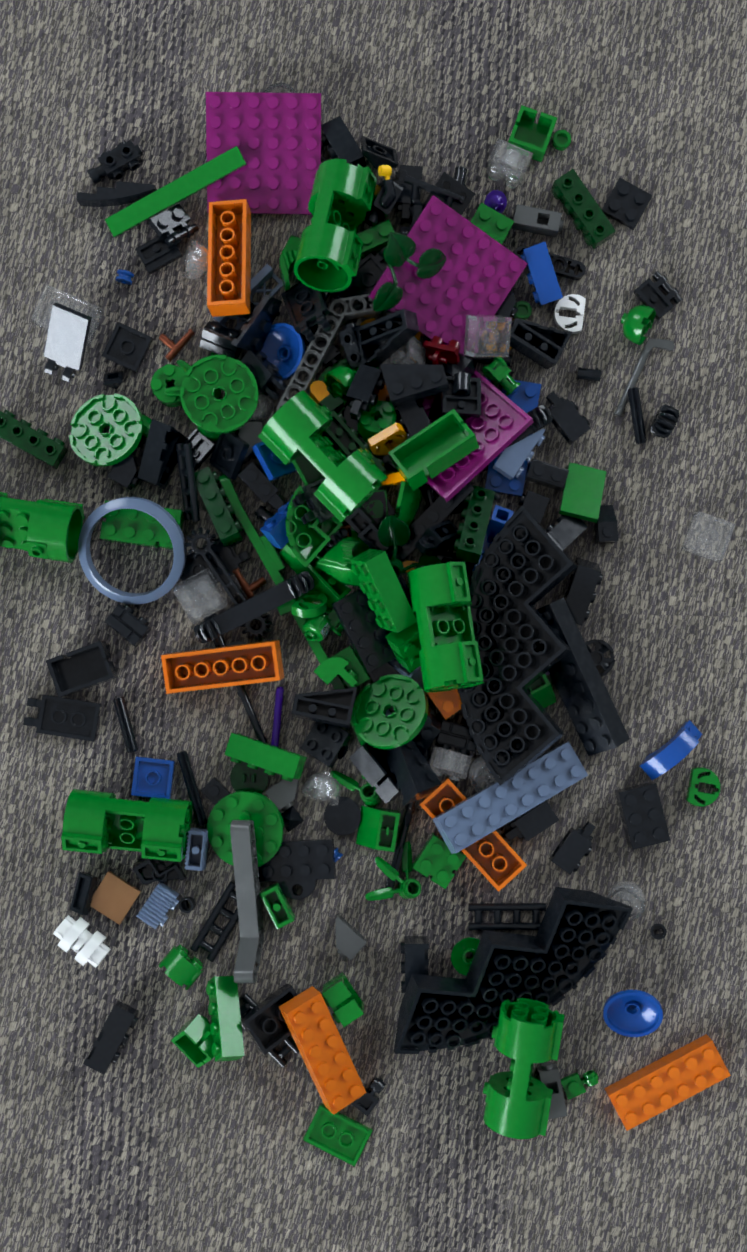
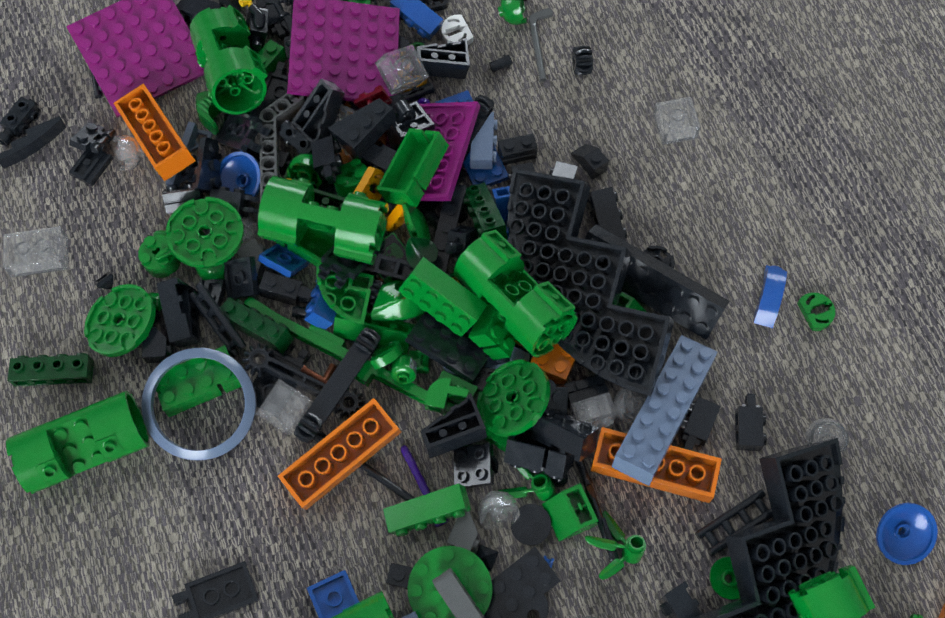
camera: 30 degrees left, 20 degrees down
(66, 340) = (45, 267): tile -> none
(83, 670) = (214, 535): black piece -> none
(124, 277) = (71, 198): blue bush -> none
(125, 724) = (286, 572): black axle -> none
(127, 347) = (102, 249): black plate -> none
(128, 625) = (231, 473): black brick -> none
(175, 191) = (80, 112): green tile -> none
(175, 348) = (145, 229): copper piece -> none
(192, 788) = (376, 585): black axle -> none
(248, 779) = (422, 541): dark green piece -> none
(396, 253) = (290, 29): dark green plant -> none
(438, 861) = (643, 505): green piece -> none
(500, 375) = (430, 95): green connector -> none
(567, 419) = (507, 102): black hinge -> none
(583, 492) = (556, 145): green tile -> none
(637, 415) = (558, 70): black axle -> none
(642, 815) = (786, 361): black brick -> none
(656, 927) = (870, 447): black hinge -> none

